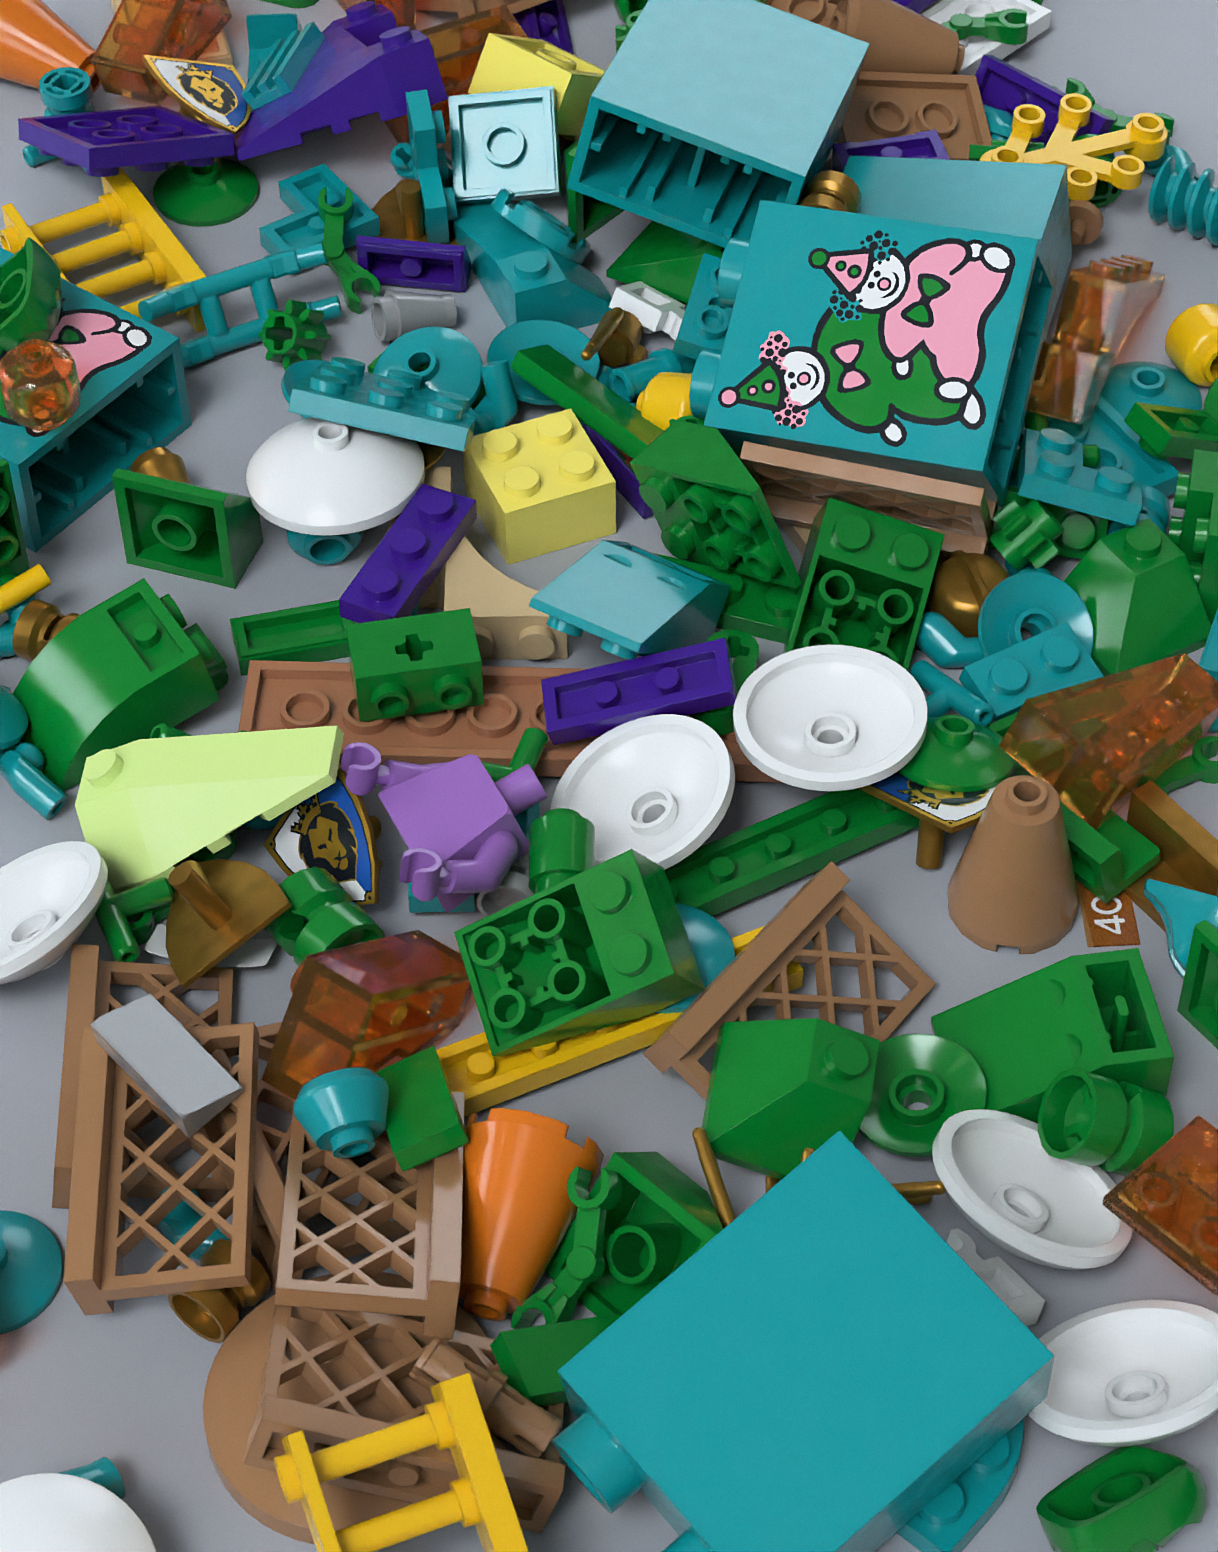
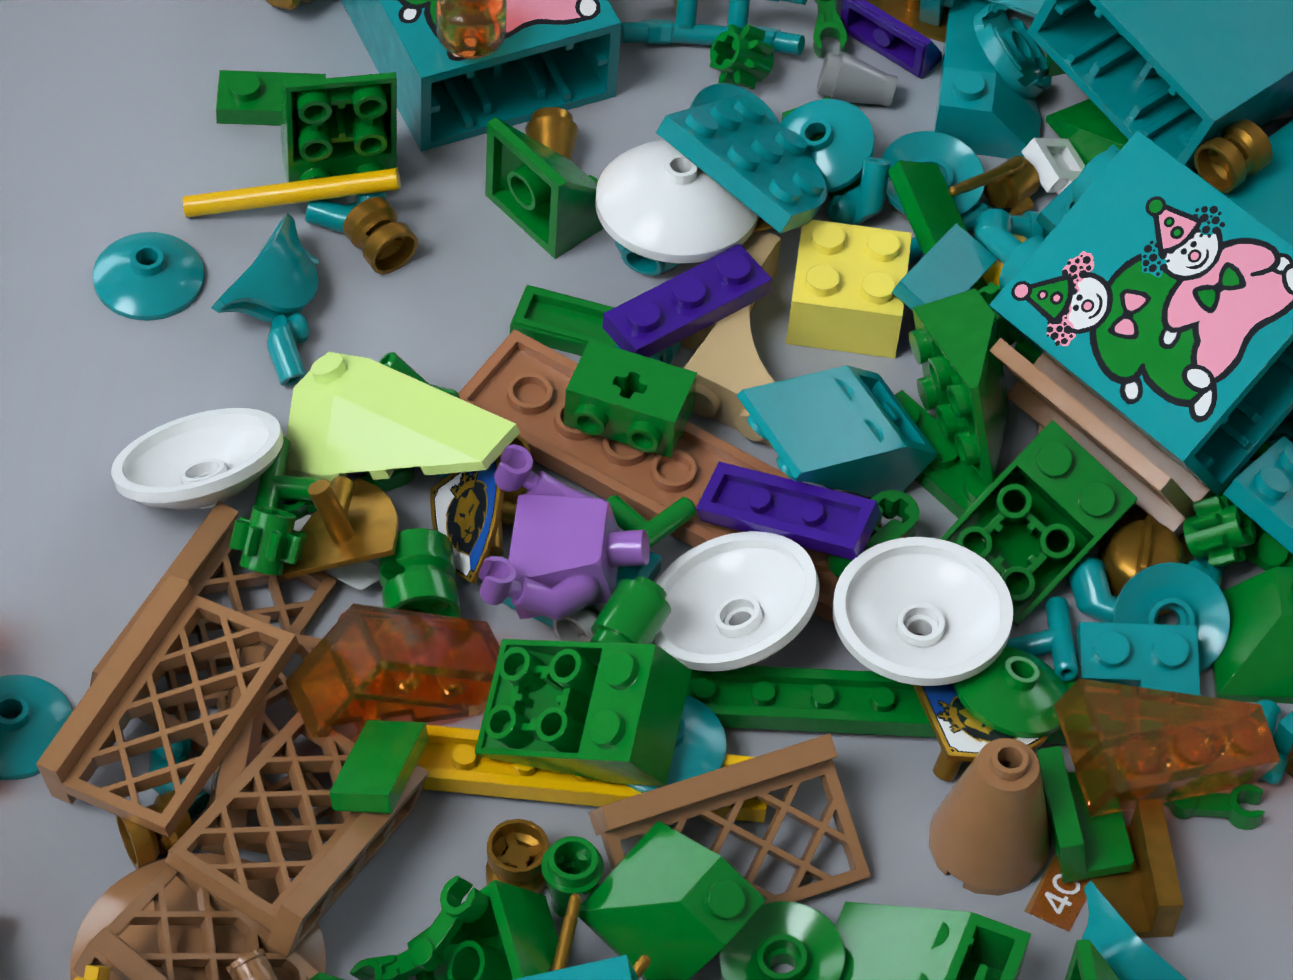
camera: 25 degrees right, 5 degrees up
(116, 679) = (401, 296): green piece -> none
(150, 956) = (267, 540): none -> green gear
(166, 1062) = (207, 633): light grey slope -> none
(344, 1110) = (316, 740): teal cone -> none
(515, 1205) = (401, 882): orange cone -> none
(605, 1118) = (521, 847): none -> pearl gold wheel
(626, 425) = (946, 269): none -> teal tile
(647, 374) = (995, 233): none -> teal arm
(669, 1113) = (571, 868): none -> green cone

